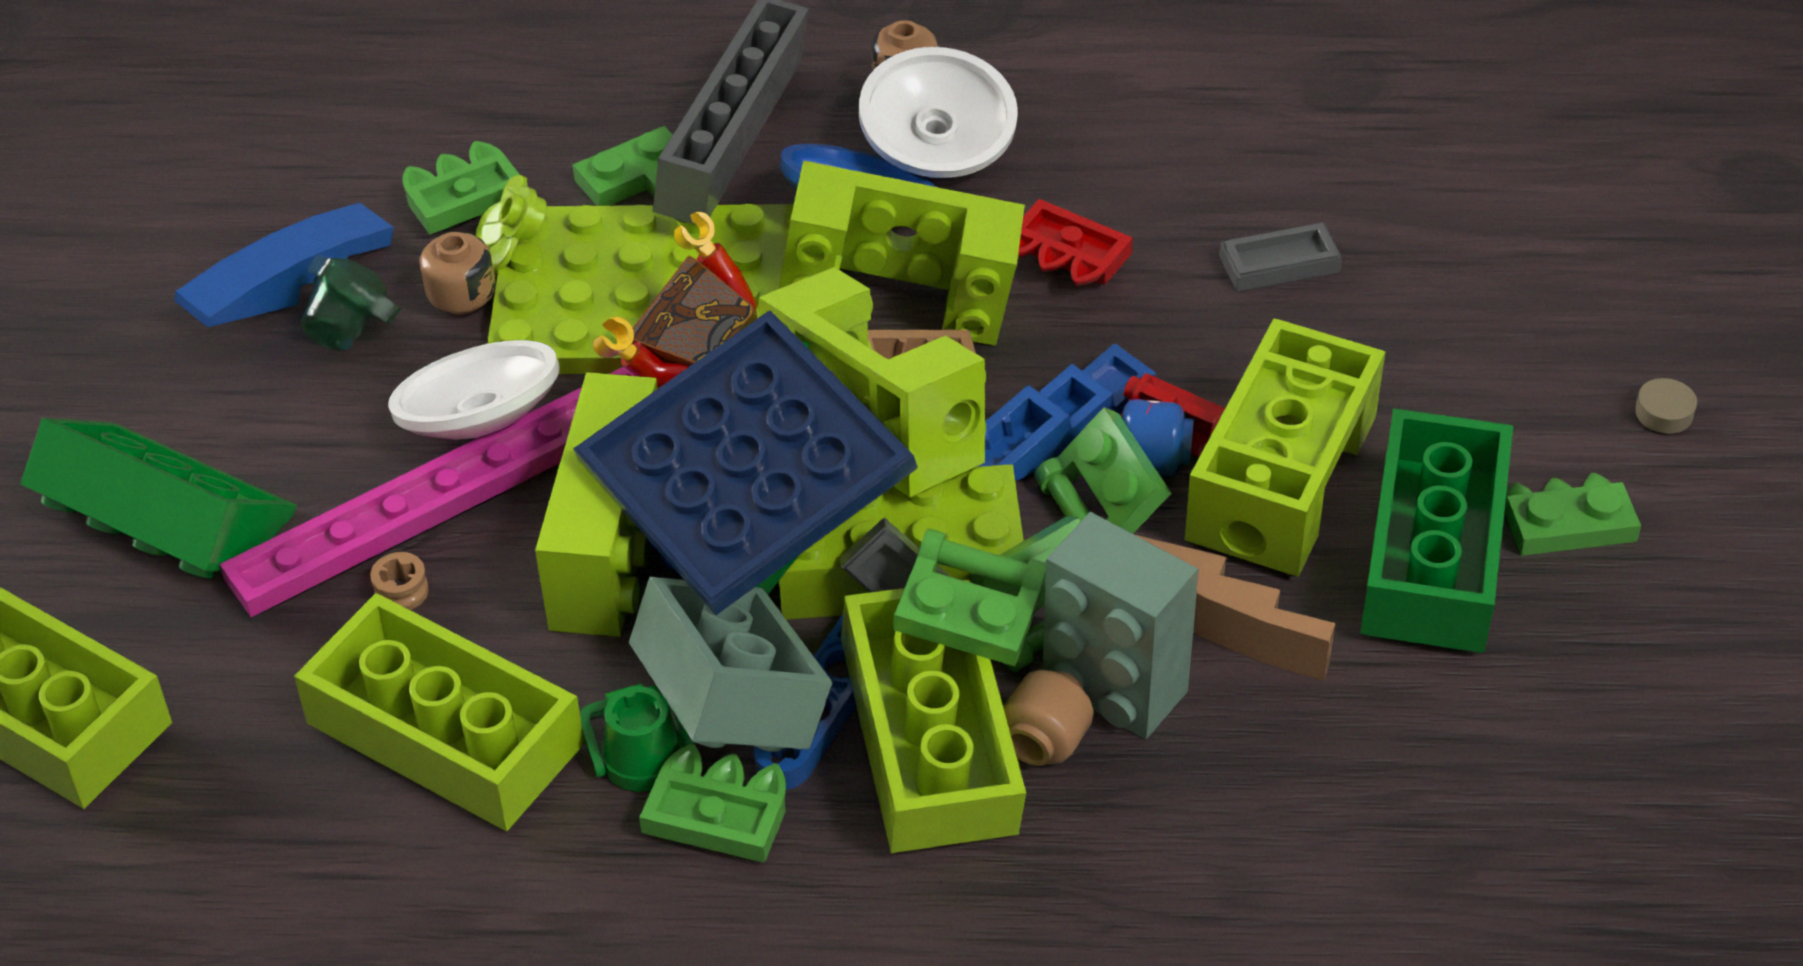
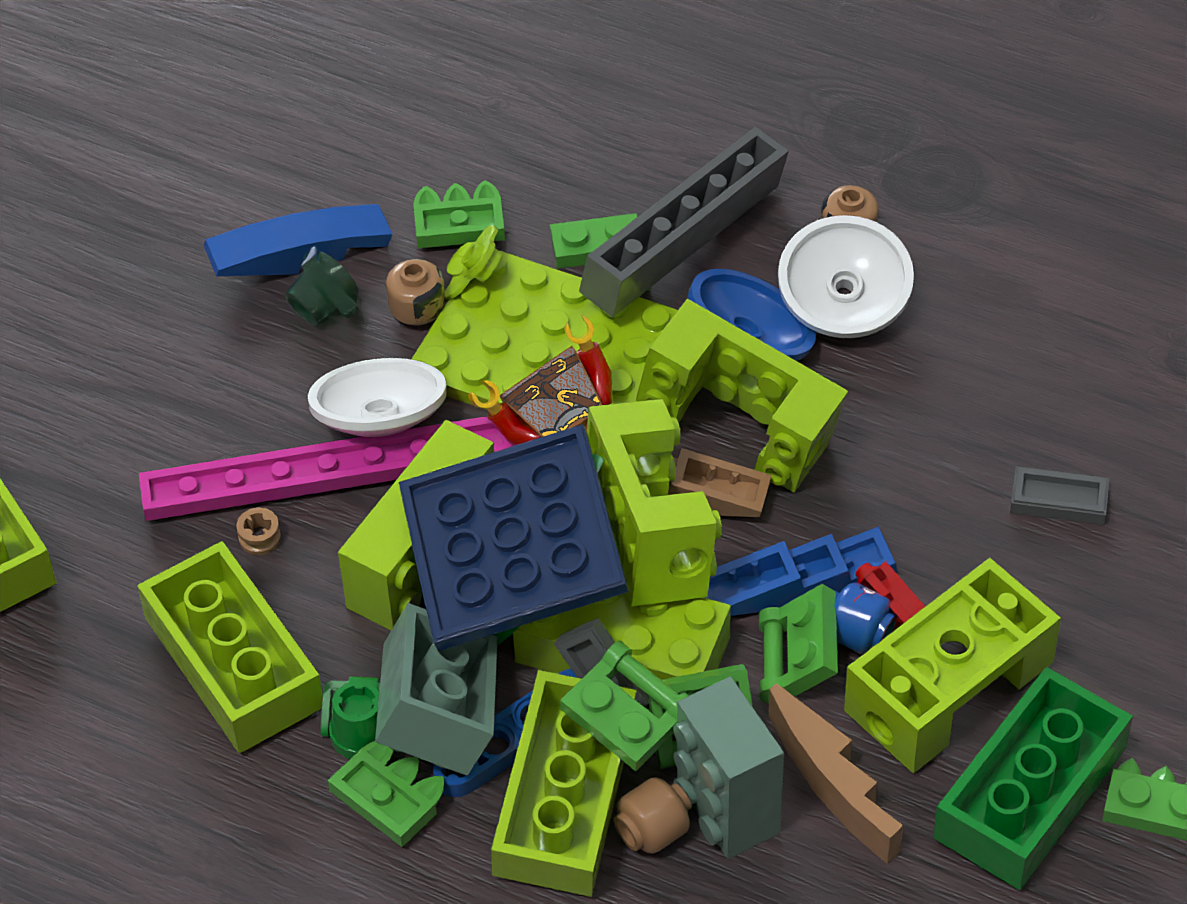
camera: 25 degrees right, 5 degrees up
(151, 493) = (122, 398): green slope -> none
(1073, 243) = (893, 424): red plate -> none

